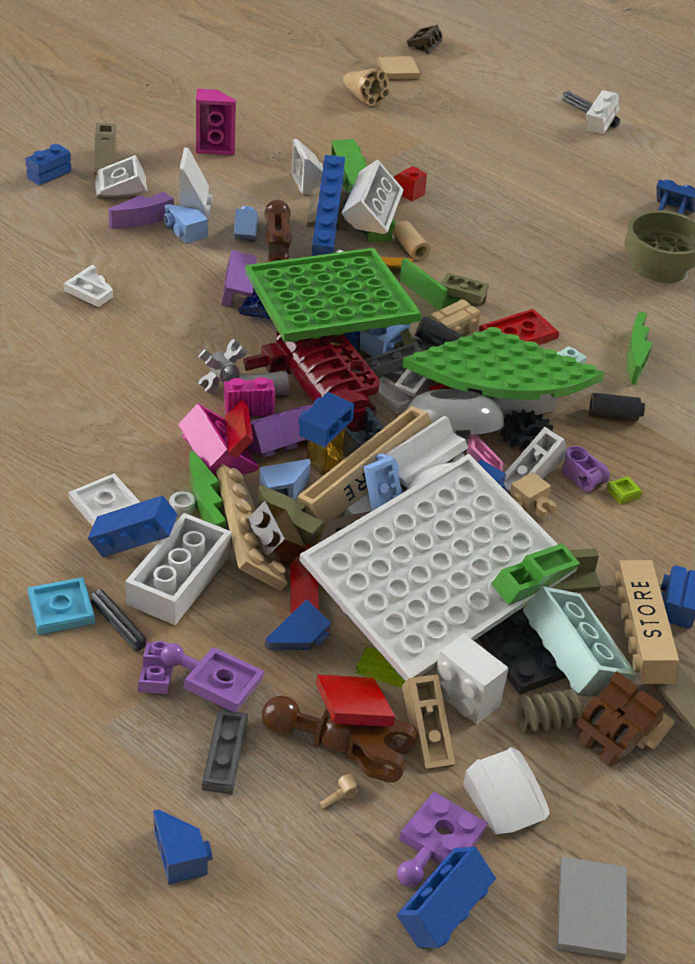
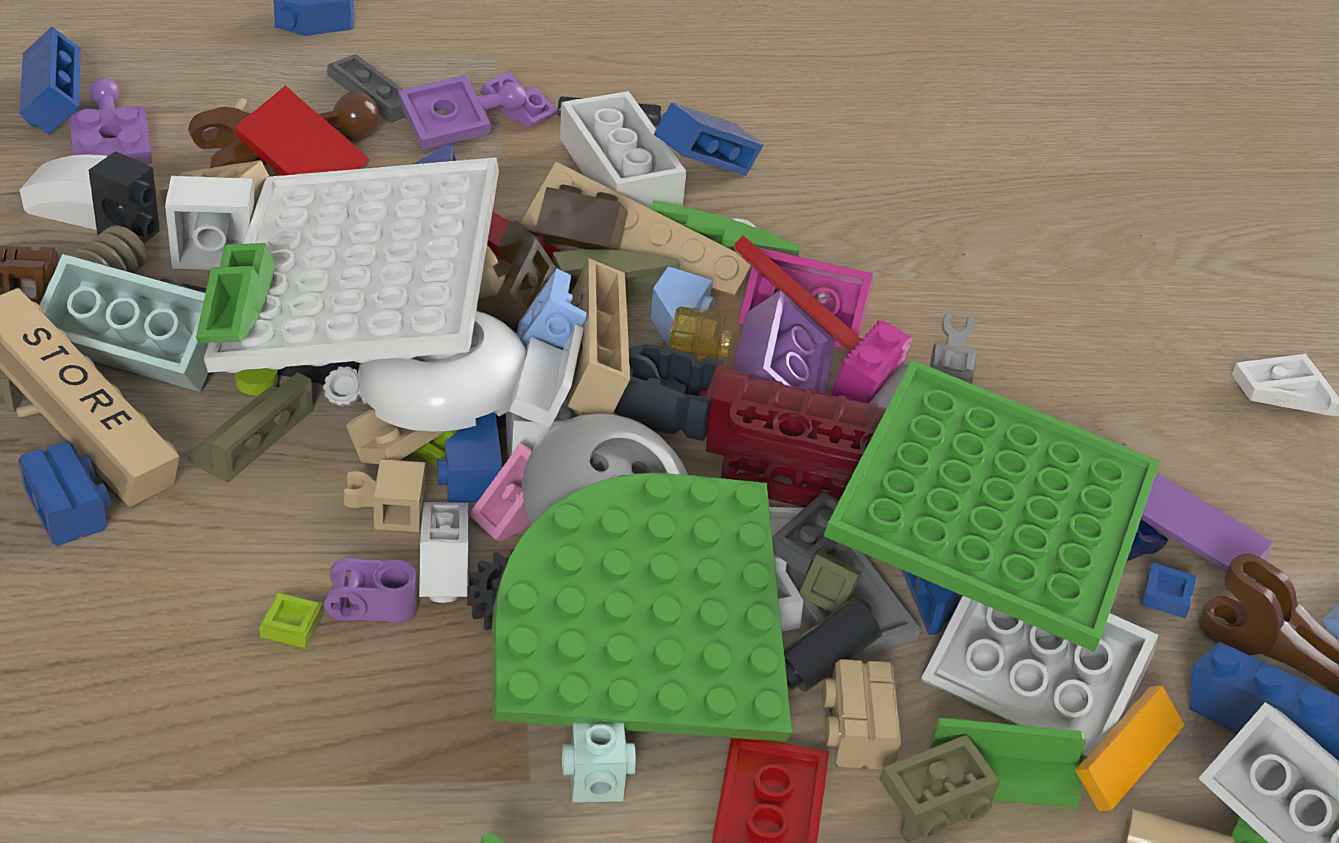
camera: 130 degrees right, 0 degrees up
(61, 605) = (668, 86): medium azure tile -> none
(102, 497) = (803, 190): white tile -> none
(325, 419) = (695, 300): blue brick -> none
(381, 340) = (888, 591): light blue brick -> none
(504, 726) = (124, 195): none -> black brick
(616, 406) = (445, 747): black brick -> none

